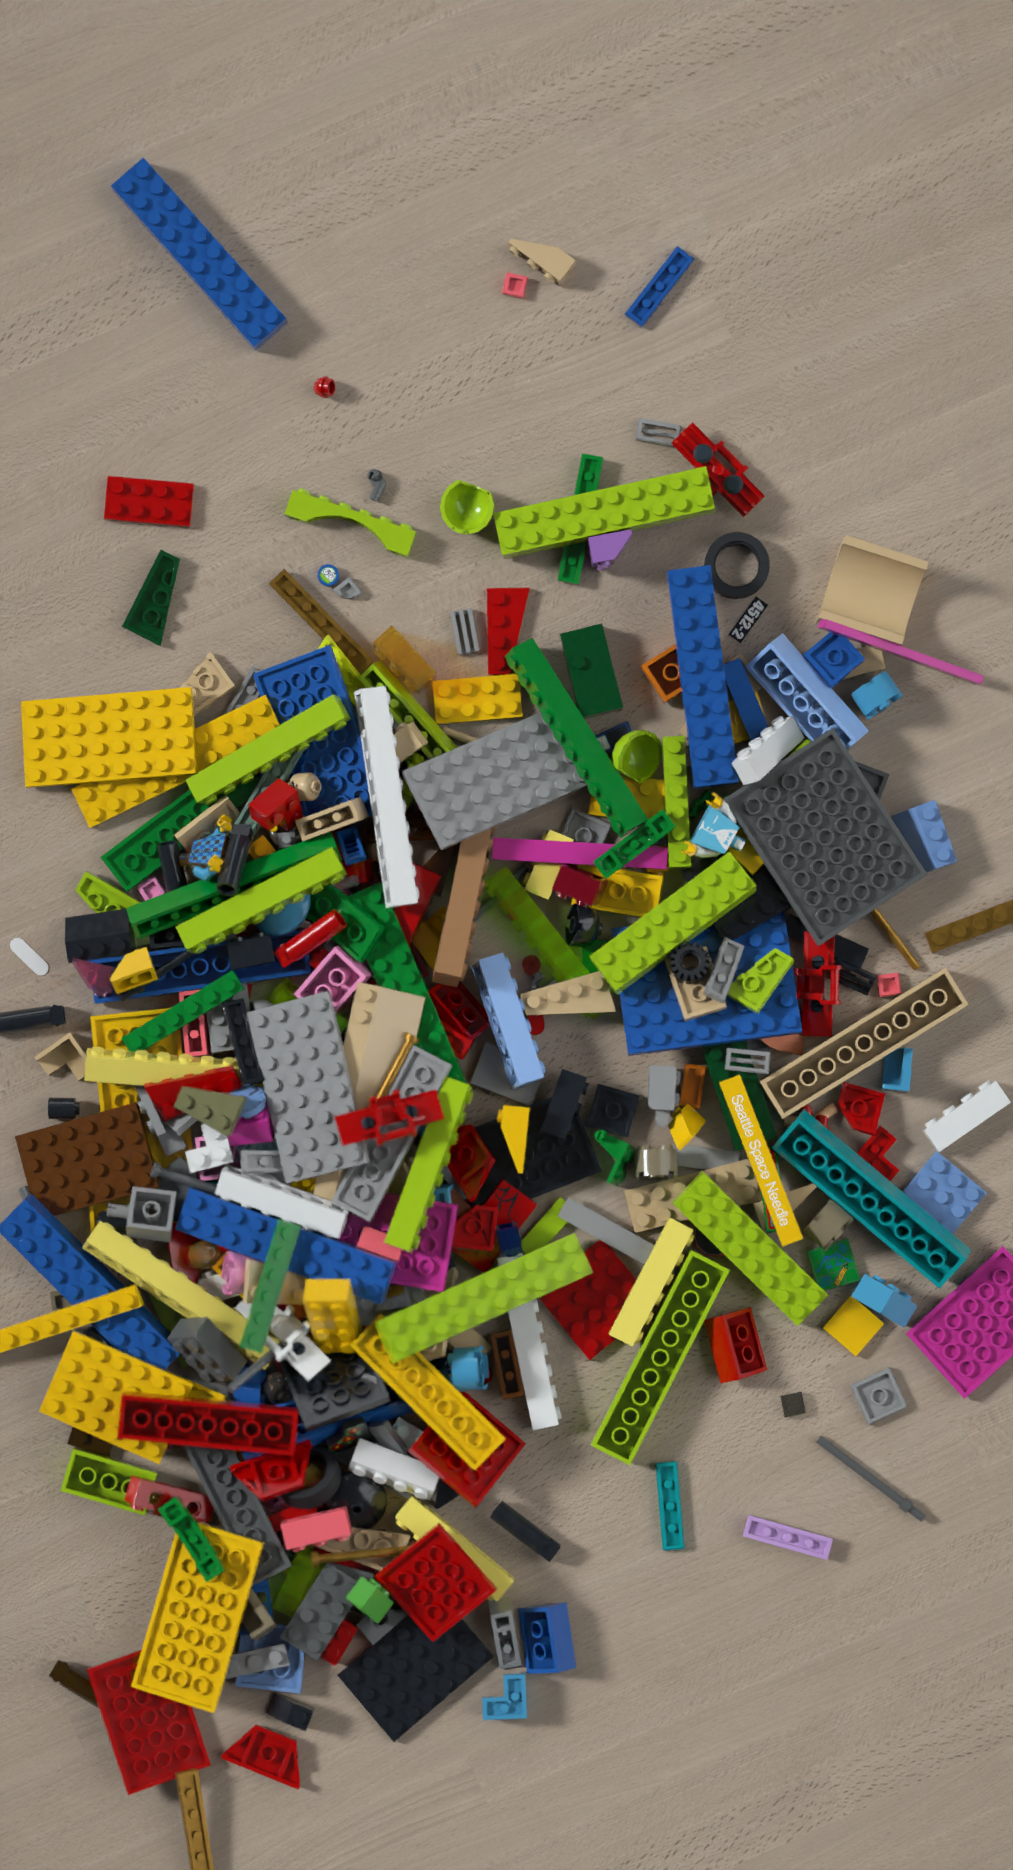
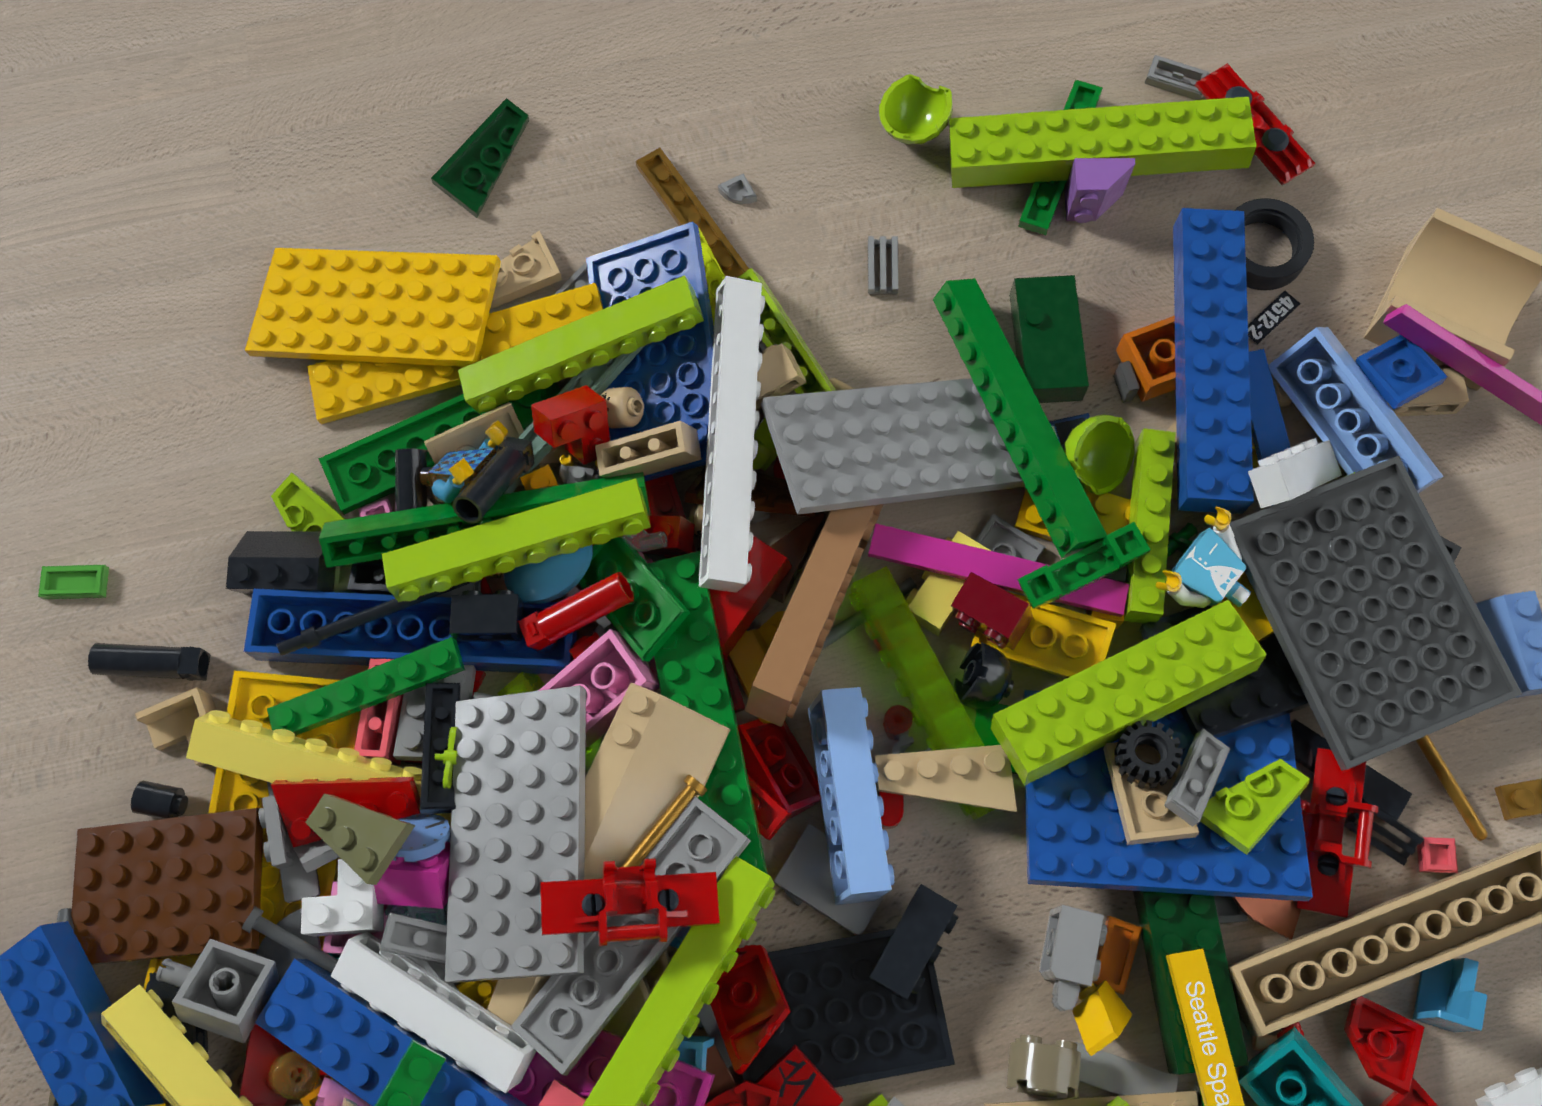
camera: 15 degrees right, 15 degrees down
(29, 956) = (184, 577): white sticker -> none
(95, 976) = (253, 609): clear pink slope -> none
(133, 971) = (306, 610): yellow slope -> none
(149, 501) = (508, 50): red plate -> none
(253, 1048) = (449, 759): none -> lime piece
(308, 509) = (710, 87): lime arch -> none
(328, 575) = (716, 169): tile -> none
(344, 838) = (668, 496): blue slope -> none
(378, 483) = (804, 76): dark grey arm -> none
(404, 660) = (795, 277): clear yellow brick -> none
(477, 699) = (884, 350): yellow plate -> none
(504, 623) = (939, 258): red wing -> none
(514, 1127) = (830, 965): yellow slope -> none
(612, 1110) = (986, 969): black plate -> none
(620, 1151) = (989, 1036): green plate -> none
(650, 693) = (1126, 381): none -> dark grey tile
(751, 1061) = (1187, 921): light grey tile -> none
(824, 1114) = (1326, 1039): light nougat arm -> none
(876, 695) = (1453, 433): dark azure brick -> none

